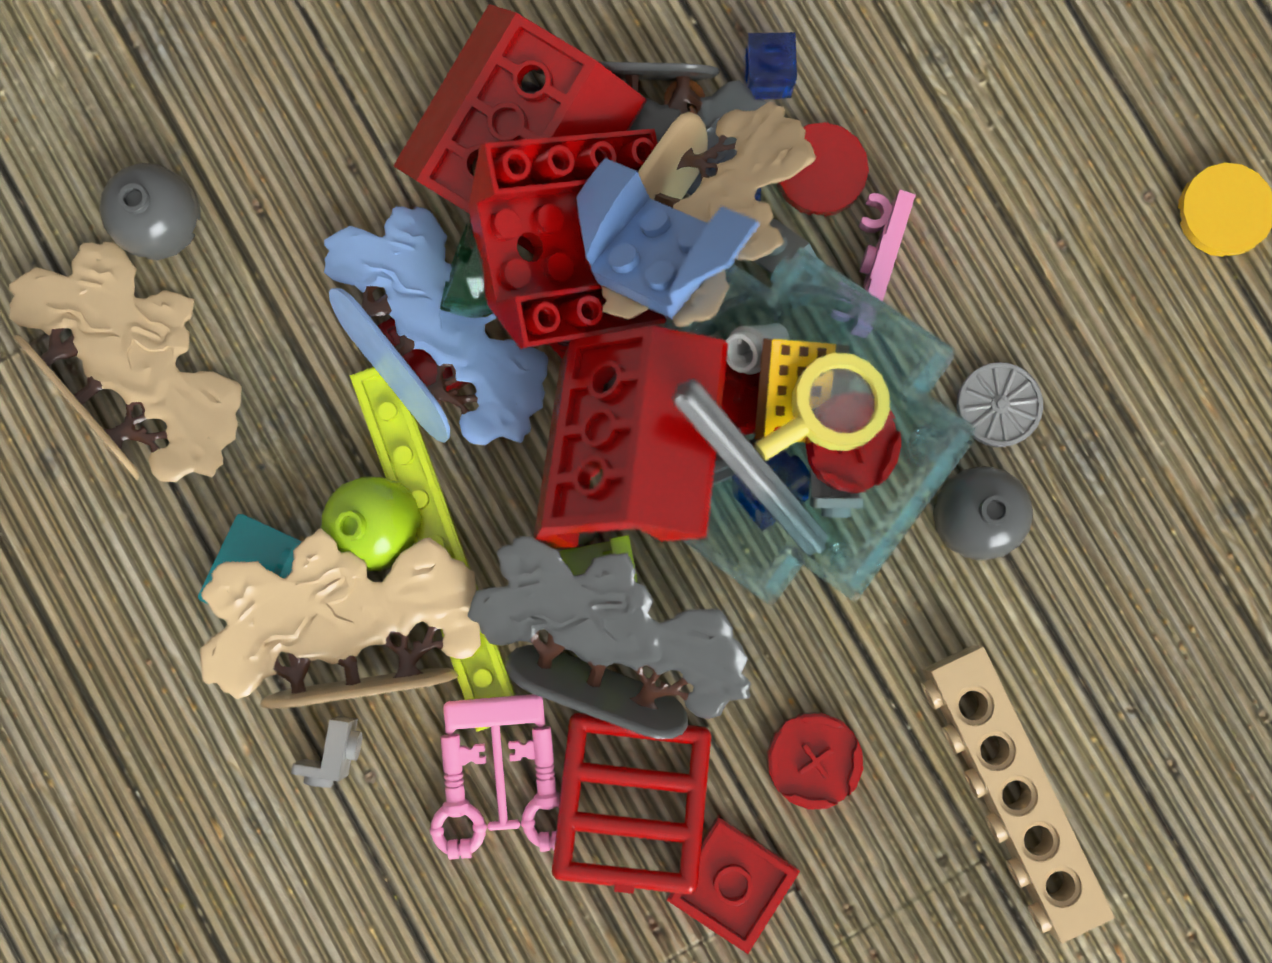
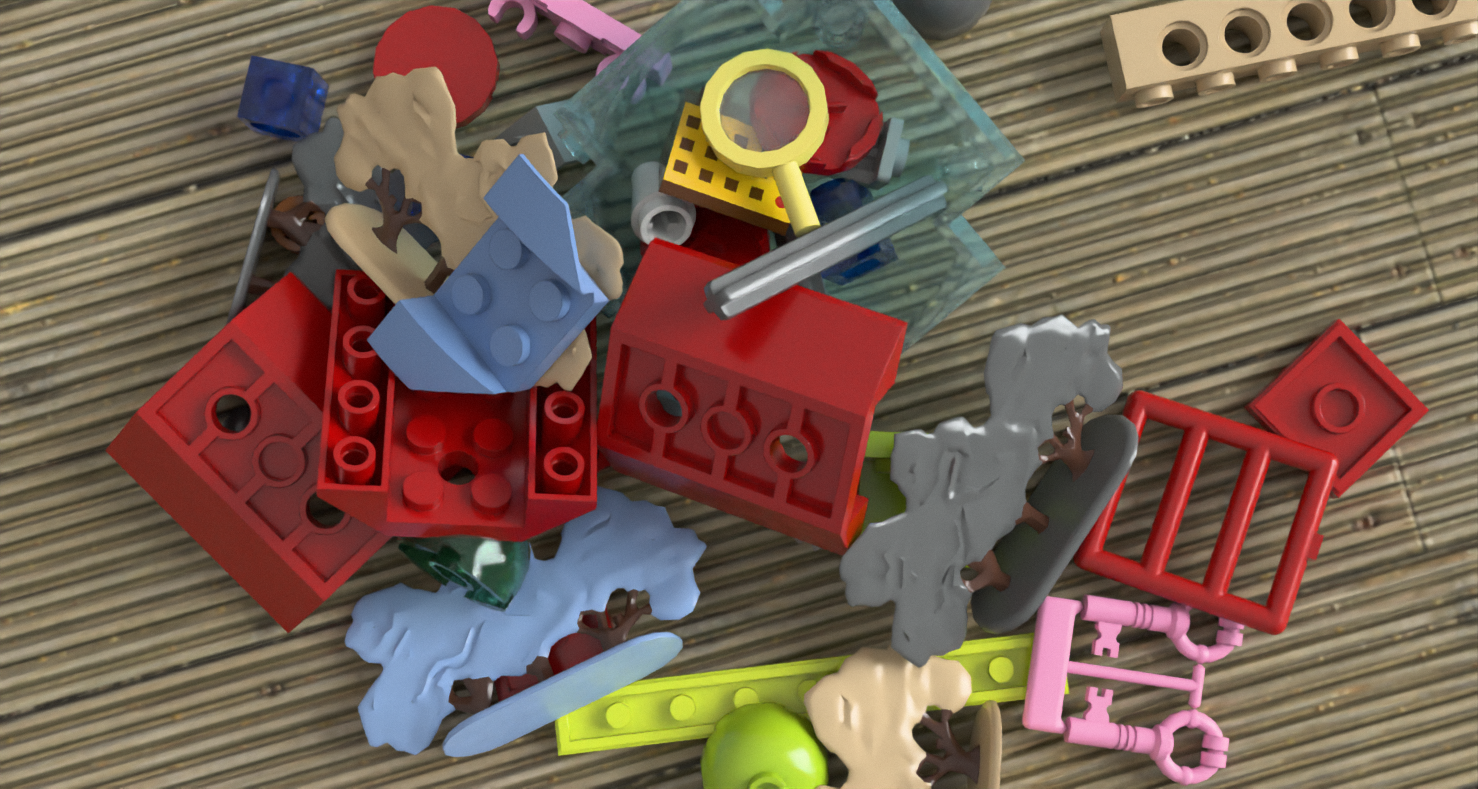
camera: 70 degrees left, 0 degrees up
(814, 760) = (1202, 266): red tile -> none

